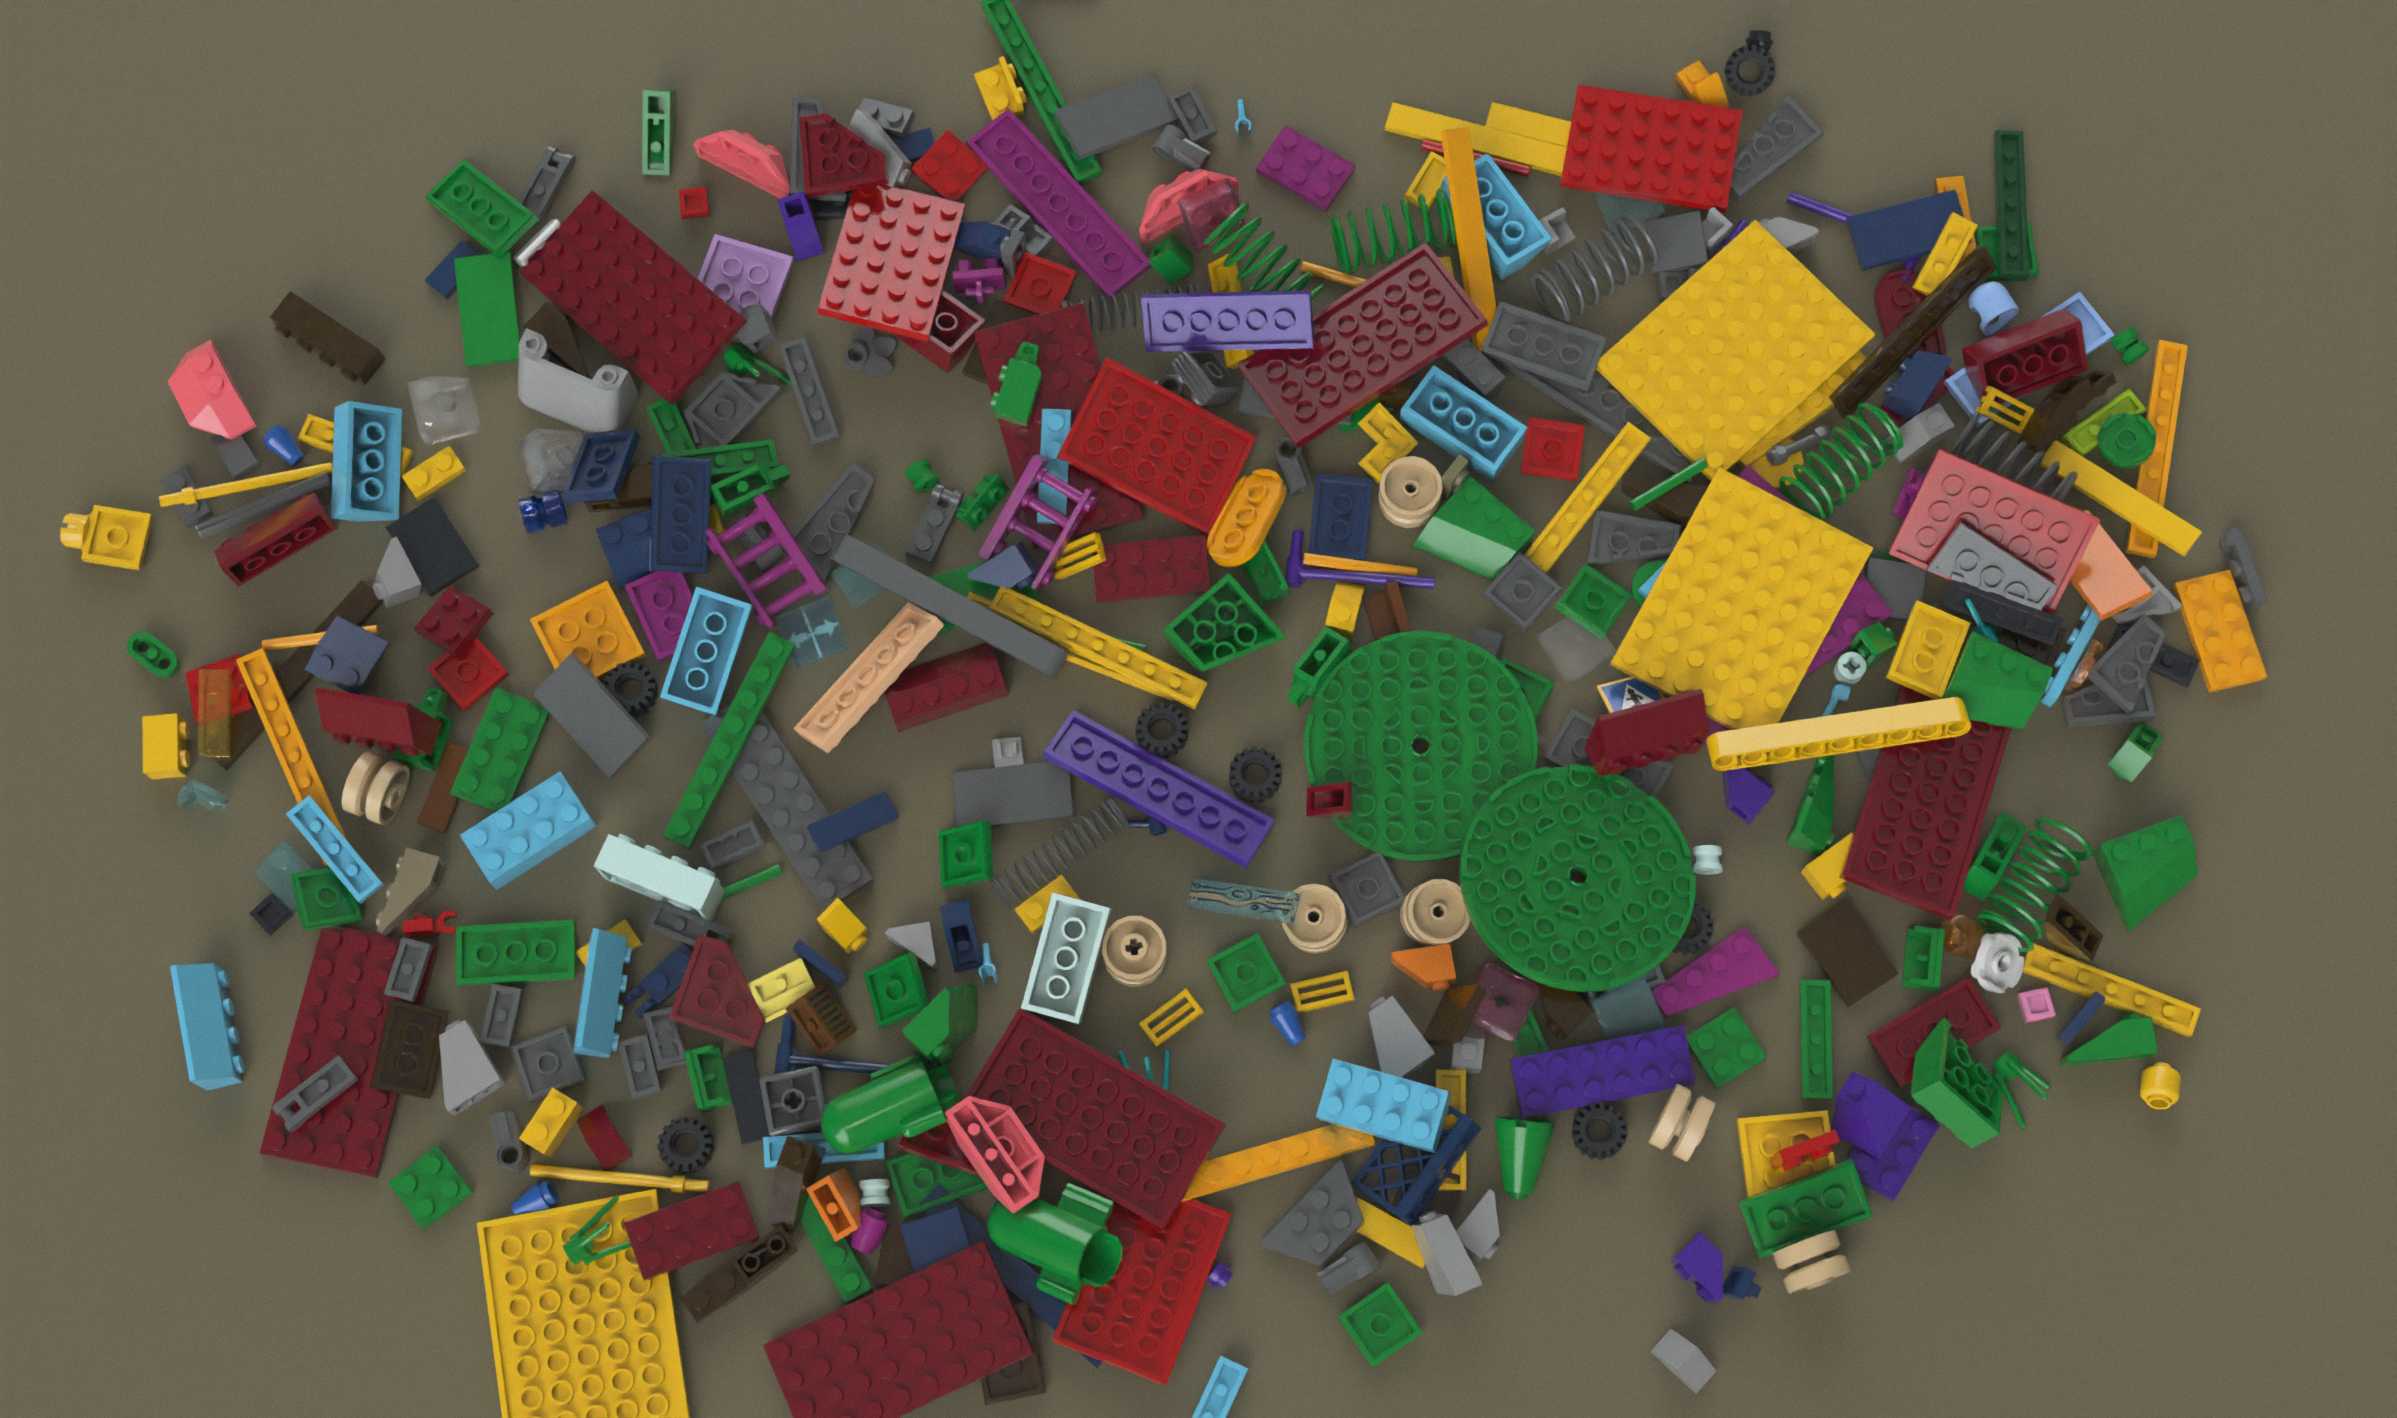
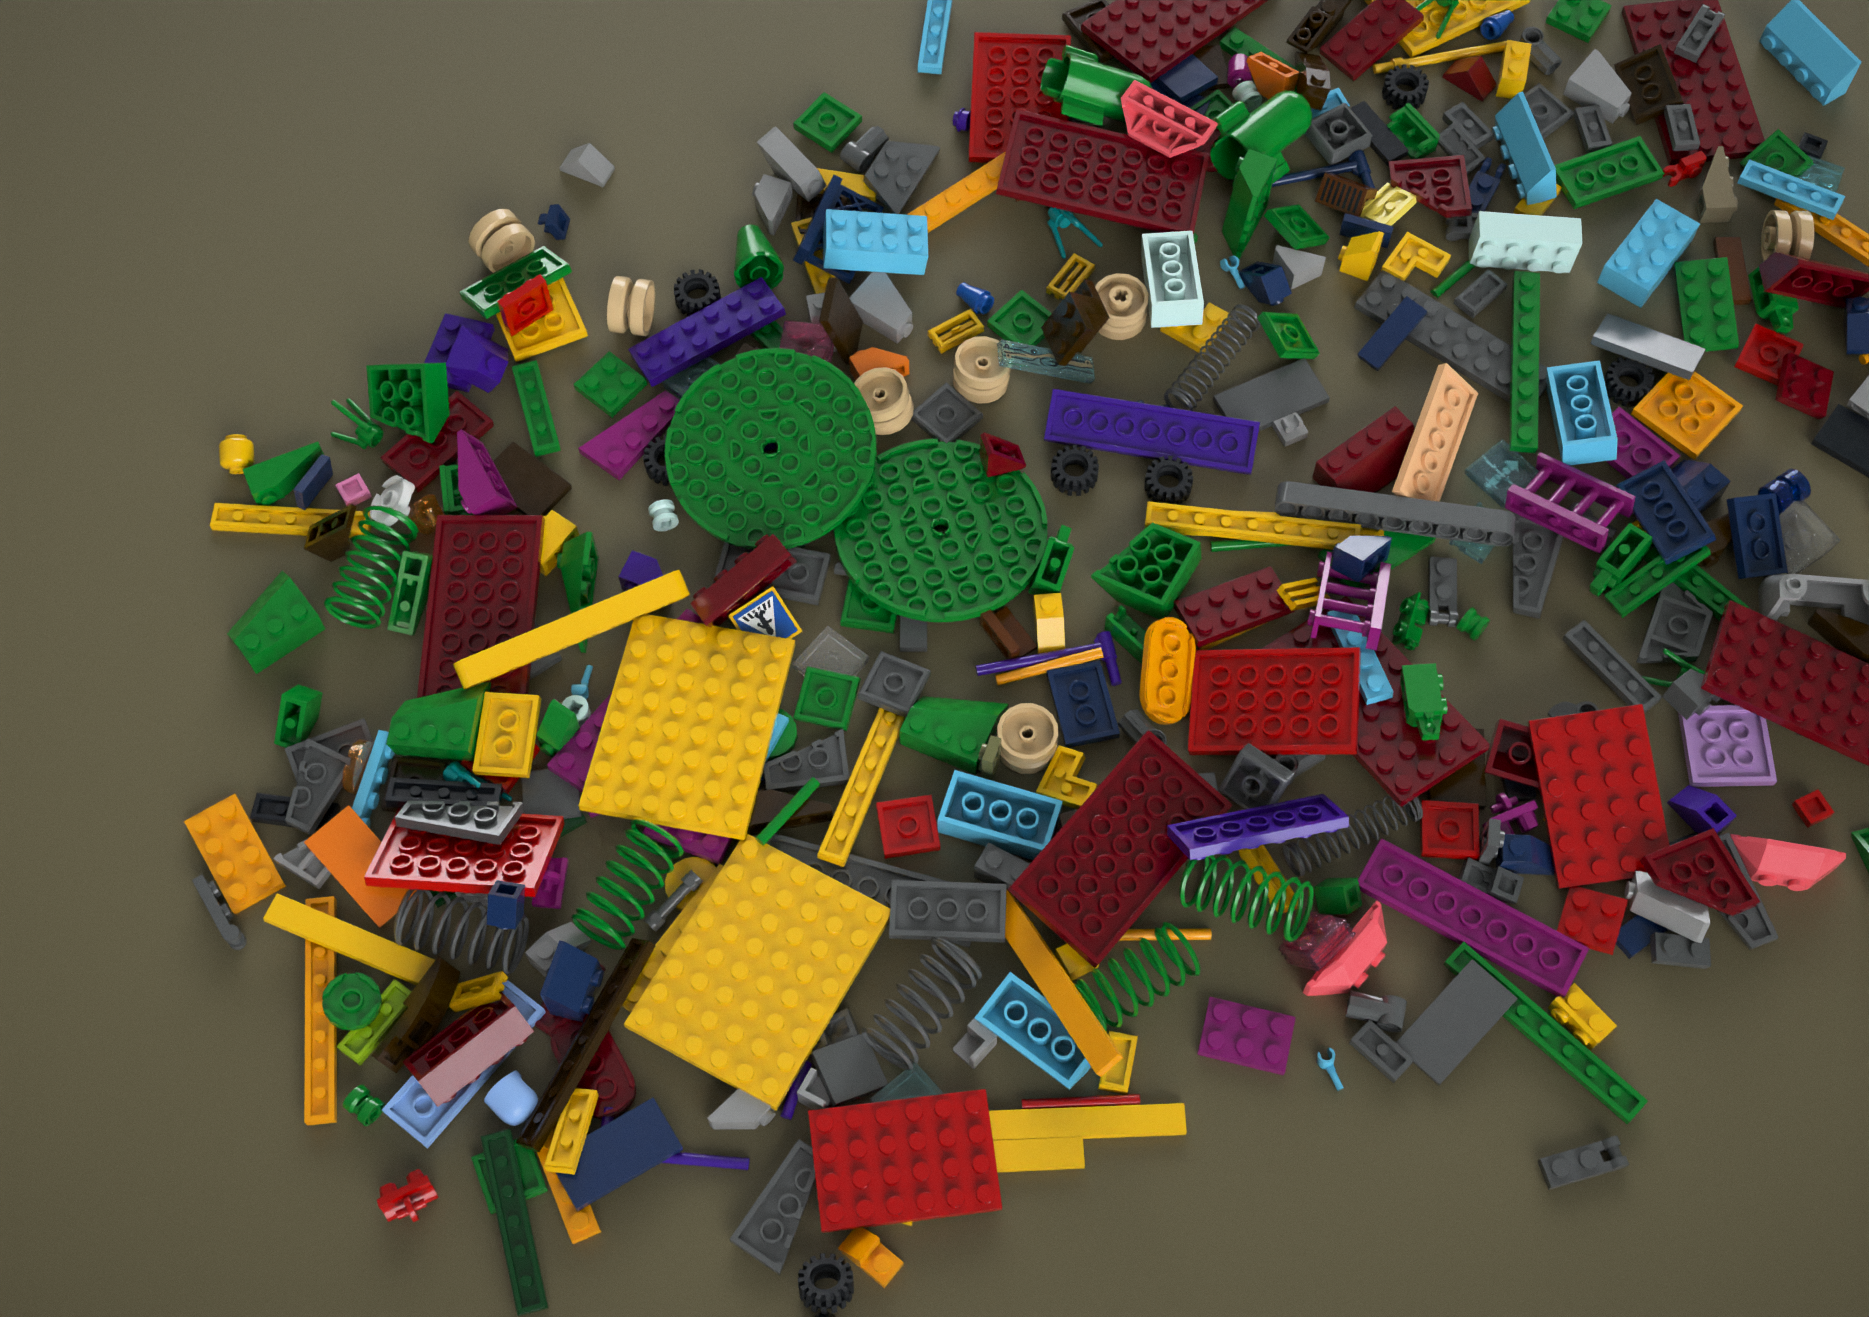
camera: 160 degrees right, 10 degrees down
(782, 920) = (1417, 253): none -> yellow plate
(1187, 933) = (1075, 322): none -> dark brown bracket
(1703, 1266) = (590, 226): dark purple slope -> none
(1897, 944) = (480, 480): none -> magenta slope
(1969, 443) = (505, 905): none -> dark blue brick
(2116, 255) = (407, 1199): none -> red hips

